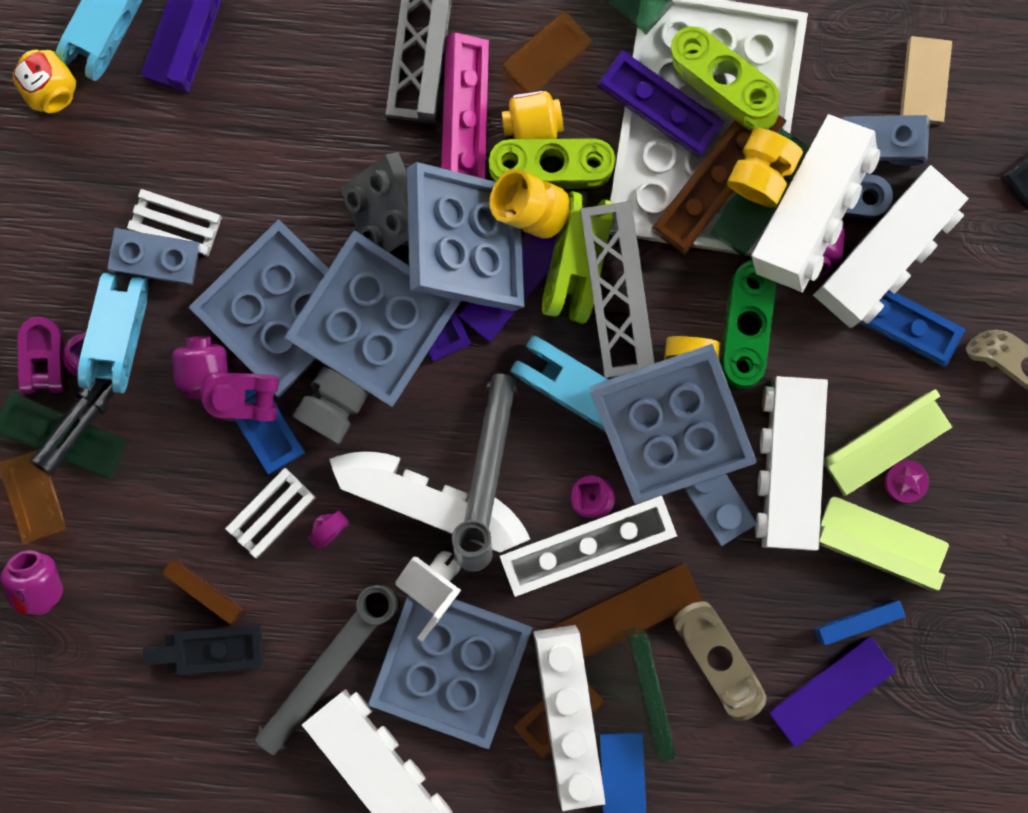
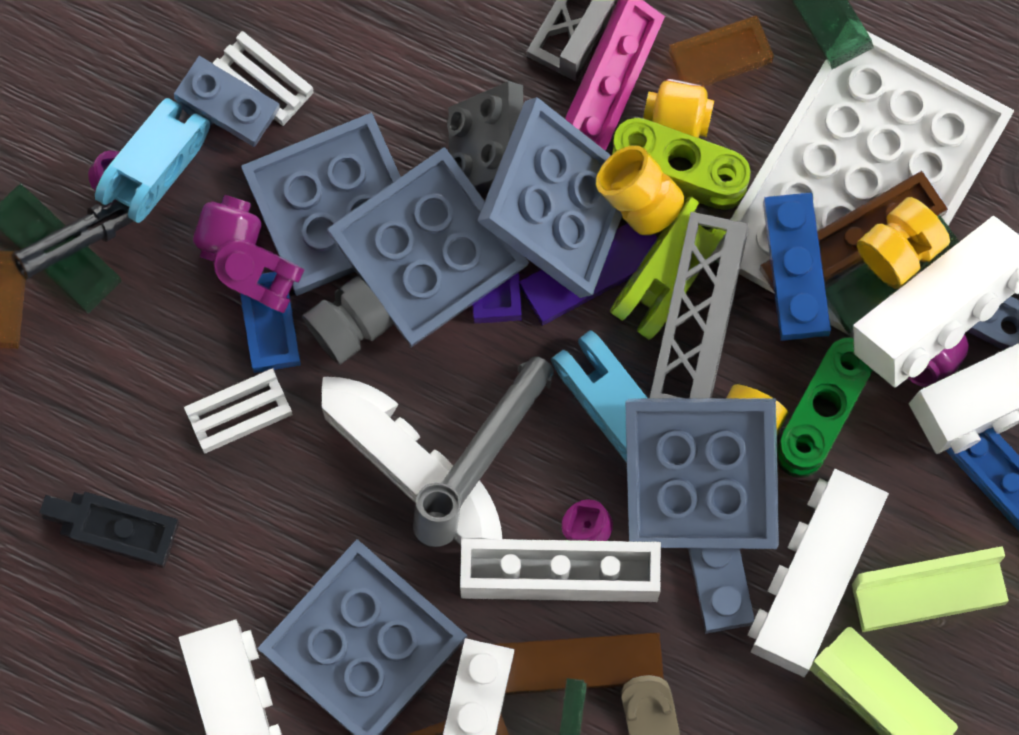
camera: 25 degrees right, 10 degrees down
(38, 341) = (71, 143): magenta plate -> none
(203, 591) = (134, 462): reddish brown tile -> none
(325, 670) = (232, 592): dark grey piece -> none
(327, 528) = (291, 449): magenta tile -> none
(430, 586) = (374, 547): white bracket -> none
(660, 104) = (820, 144): dark purple tile -> none
(682, 218) = (796, 266): none -> blue plate
(701, 58) = (882, 112): lime piece -> none
(906, 481) = (936, 641): magenta tile -> none

